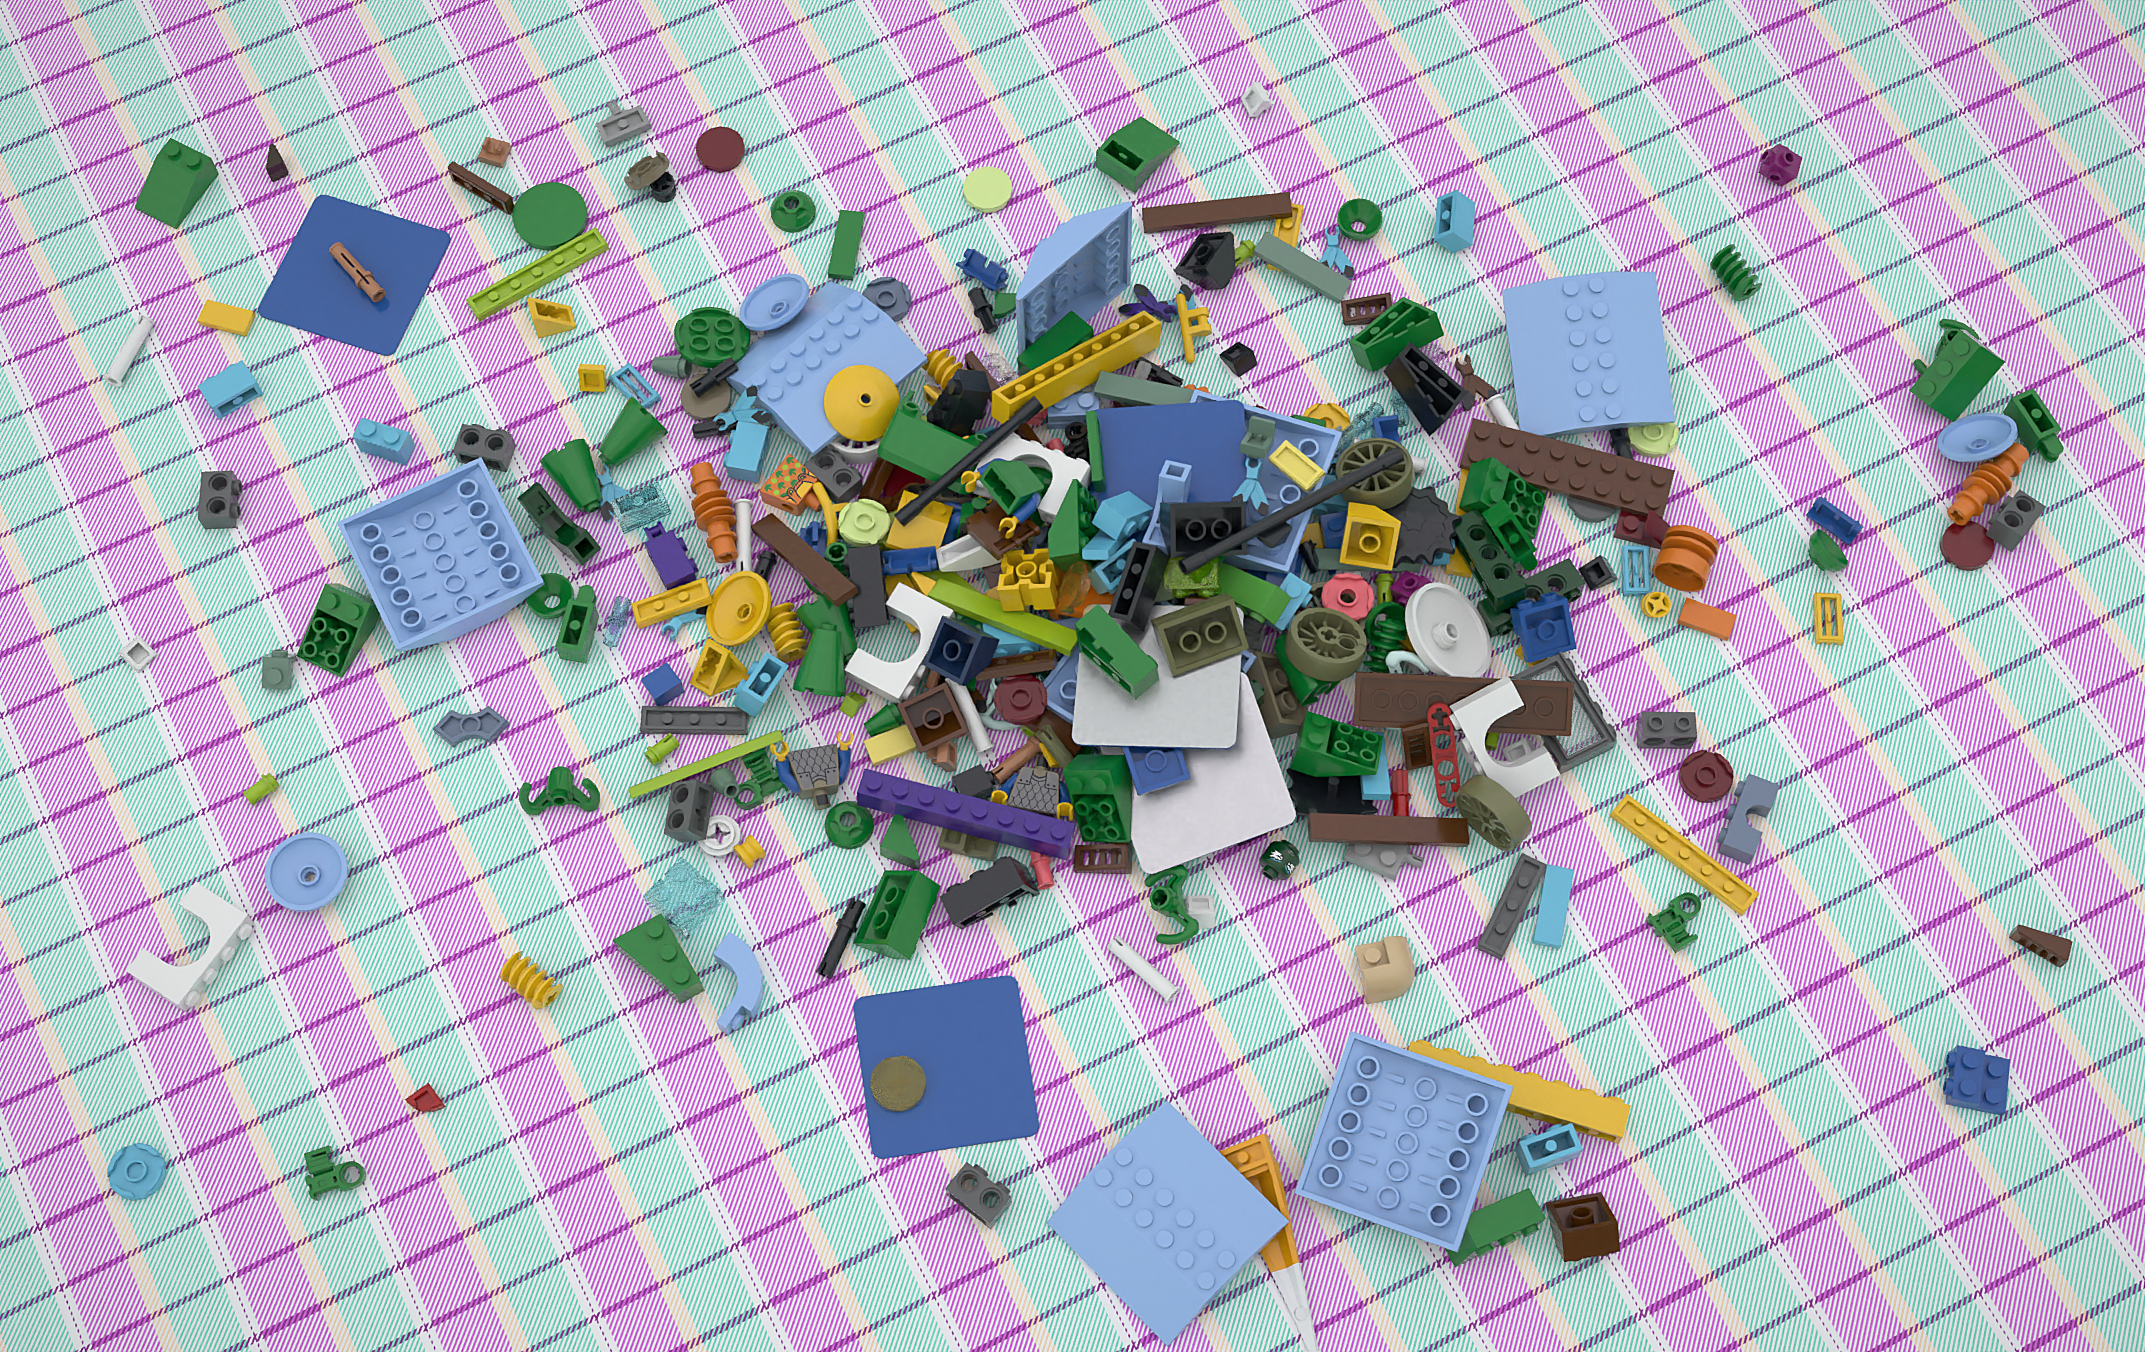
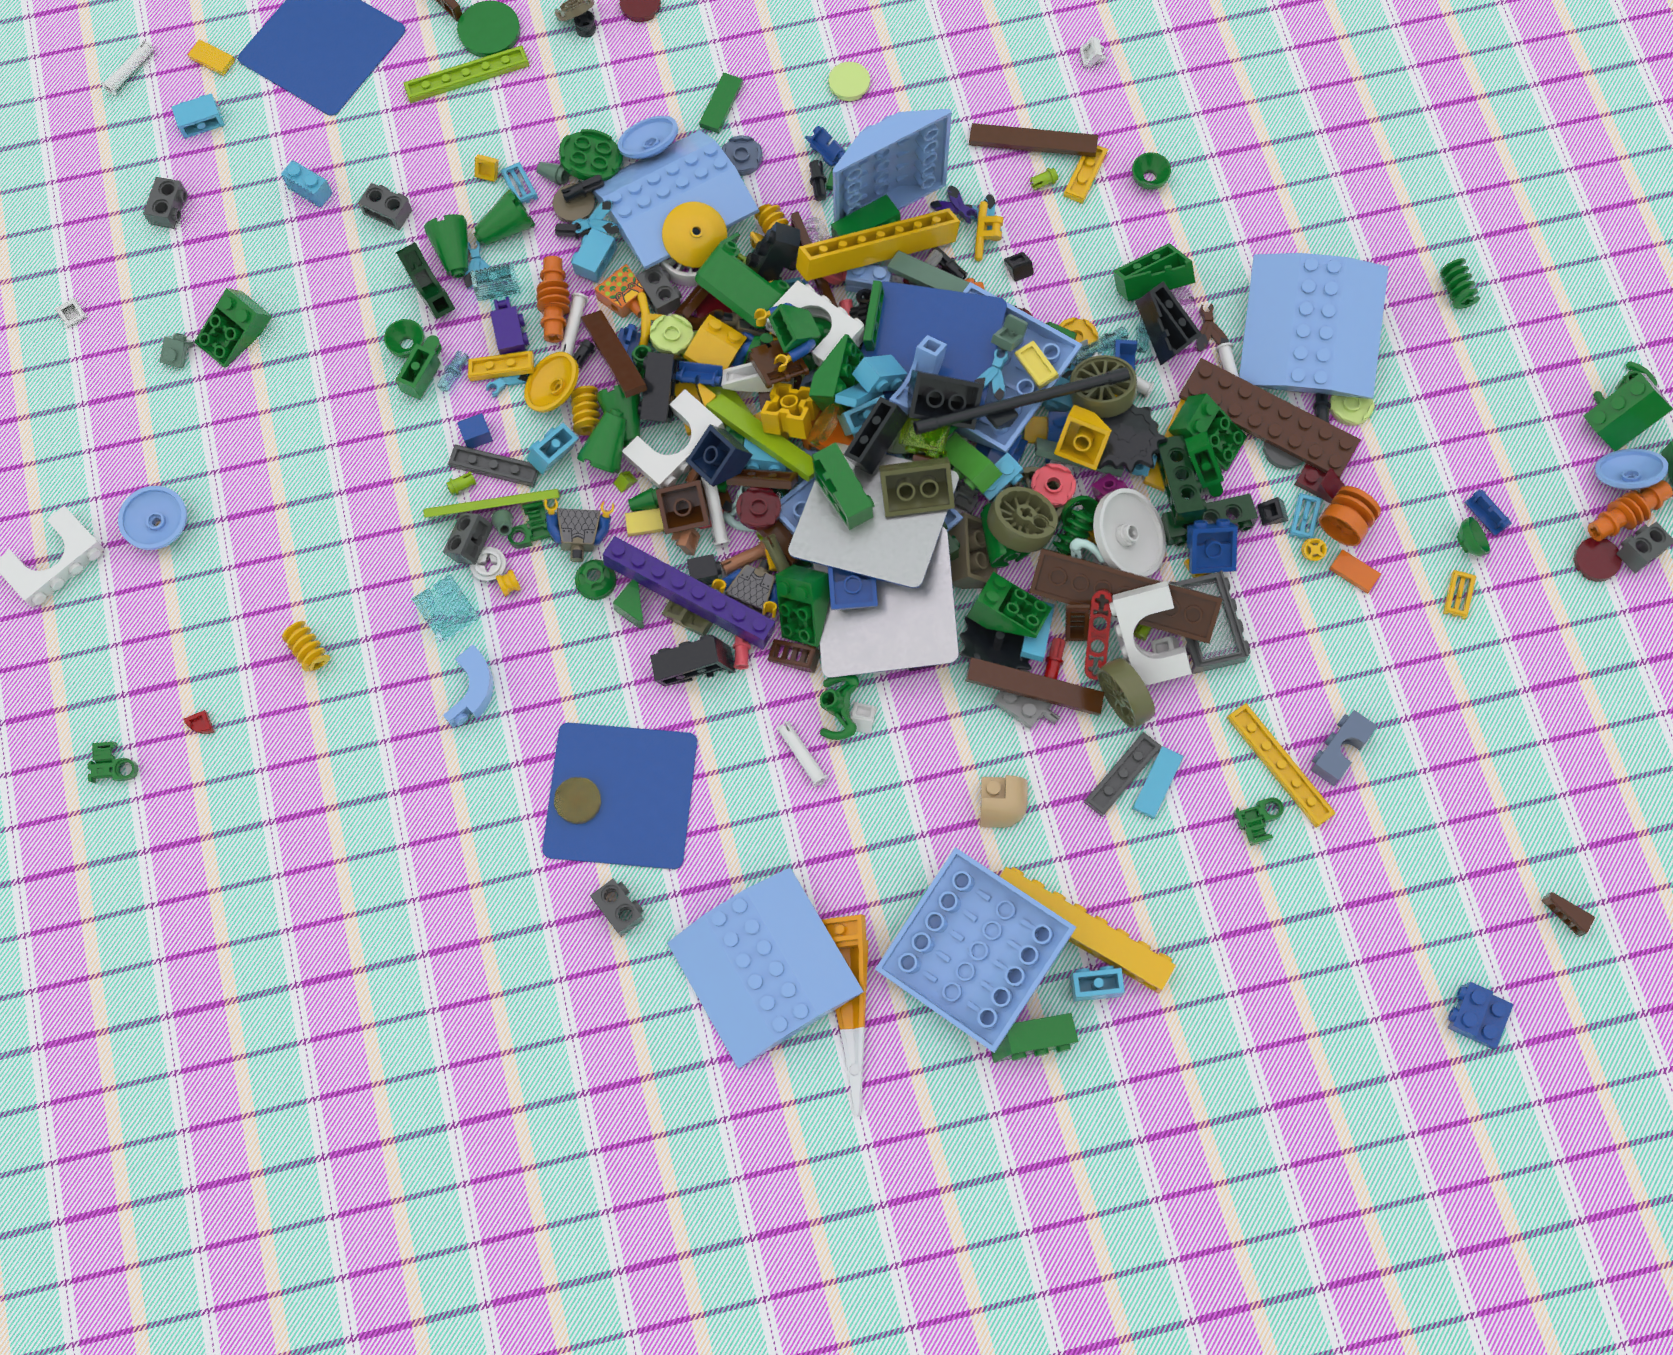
camera: 15 degrees right, 5 degrees up
(261, 788) = (137, 442): lime pin -> none
(373, 289) = (331, 57): nougat pin -> none
(441, 557) = (324, 288): light blue slope -> none
(481, 725) = (307, 429): sand blue tile -> none
(550, 317) = (465, 111): yellow slope -> none
(559, 792) = (370, 499): green piece -> none
(660, 956) = (415, 651): green wedge -> none
(717, 669) = (521, 428): yellow slope -> none
(793, 219) = (685, 72): green piece -> none
(841, 937) = (559, 675): black pin -> none
(897, 913) = (614, 661): green slope -> none
(1020, 417) = (713, 329): black piece -> none
(1134, 153) = (978, 75): green slope -> none
(1209, 261) = (1016, 179): black slope -> none
(1279, 860) = (938, 690): dark green head -> none
(1302, 267) = (1092, 201): sand green tile -> none
(1307, 549) = (1031, 437): black pin -> none
(1335, 255) = (1121, 196): medium azure piece -> none
(1369, 301) = (1147, 242): reddish brown slope -> none
(1384, 582) = (1088, 479): lime pin -> none
(1454, 221) = (1231, 189): medium azure brick -> none
(1583, 1227) = (1109, 1056): reddish brown slope -> none
(1666, 730) = (1294, 657): dark grey brick -> none
(1706, 776) = (1317, 703): dark red tile -> none
(1780, 164) = (1524, 199): magenta brick -> none

